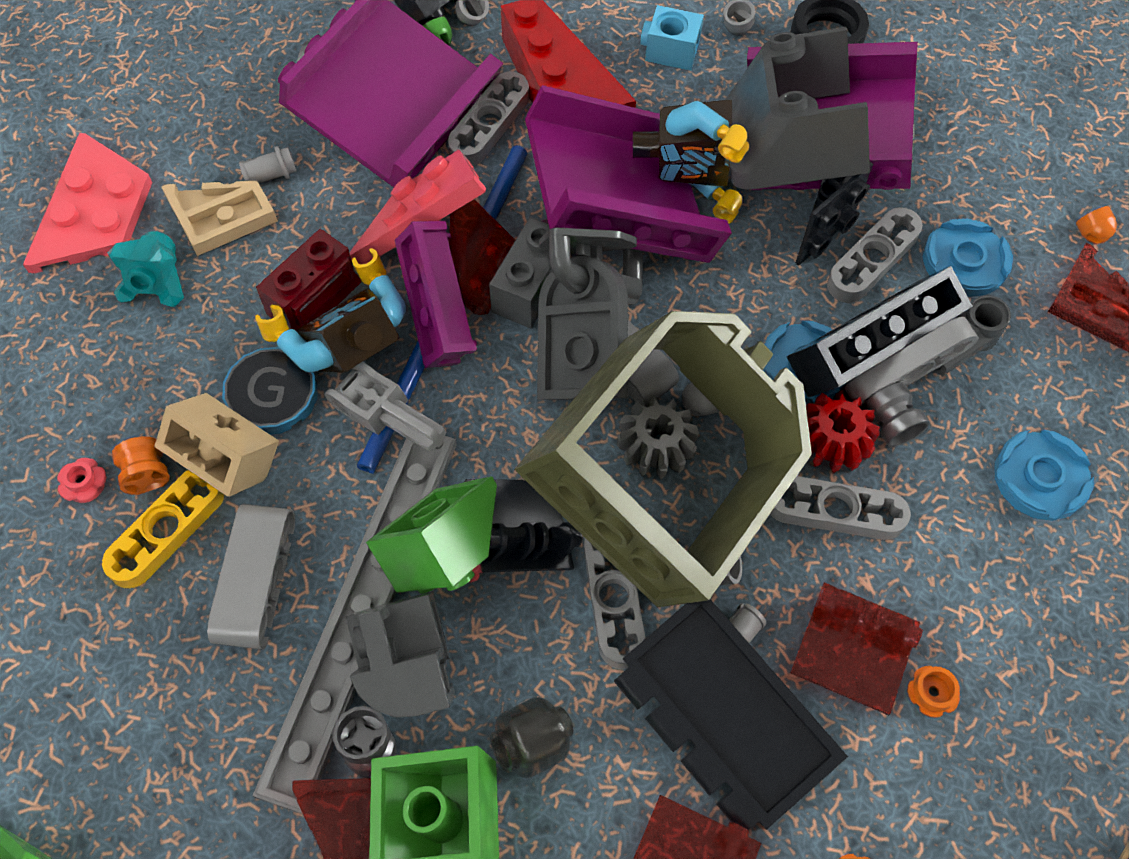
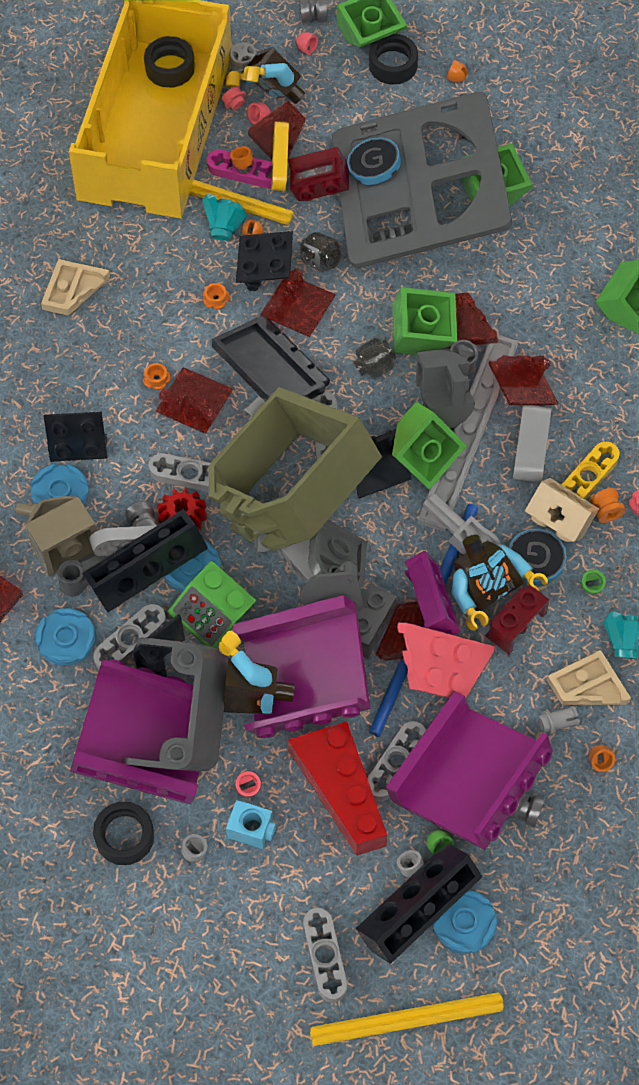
camera: 175 degrees left, 0 degrees up
(187, 346) = (590, 576): none -> bright green hinge
(215, 123) = (607, 756): none -> orange hinge
(252, 691) = (523, 379): none -> clear red hinge
(682, 82) = (244, 778): none -> coral hinge
(761, 289) = (212, 605): none -> slope
(1029, 373) = (58, 530): none -> dark tan piece
(1050, 547) = (75, 436): none -> black hinge

